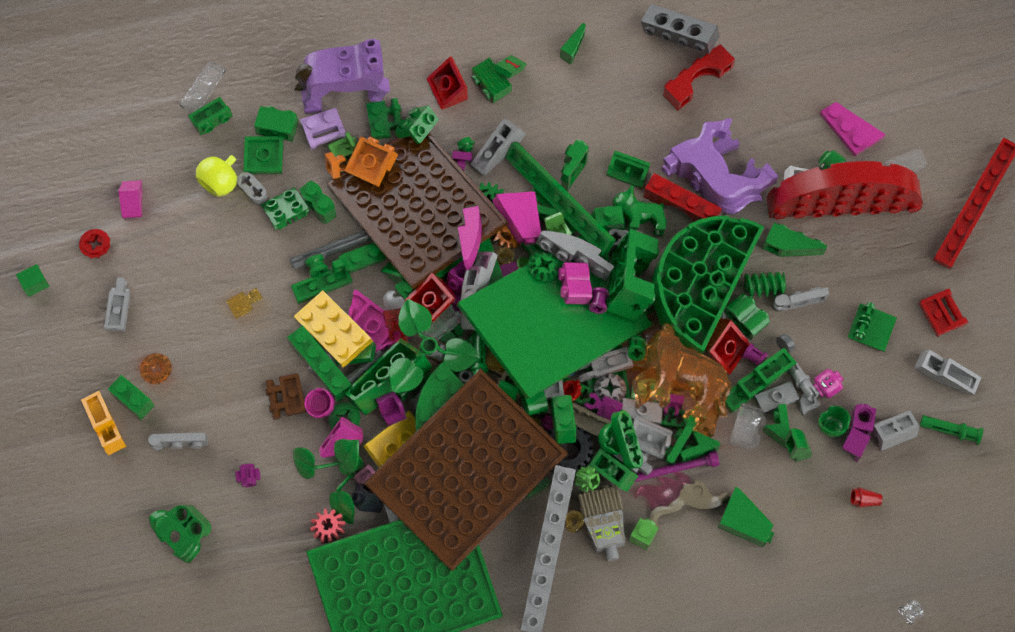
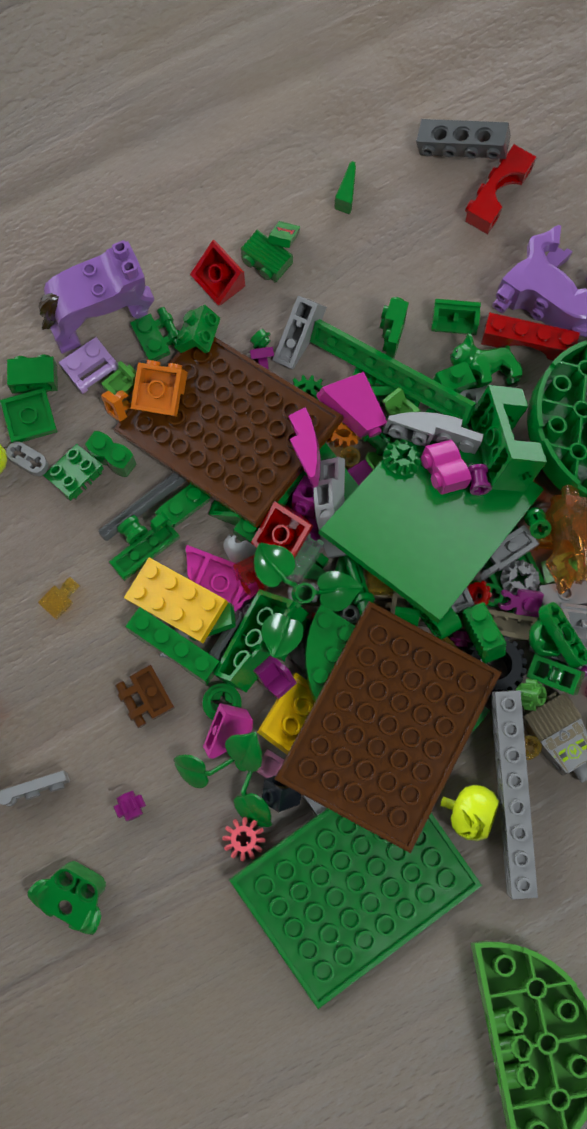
camera: 15 degrees left, 5 degrees up
(319, 403) = (187, 693): dark pink hair -> none
(512, 556) = (473, 812): none -> neon yellow piece

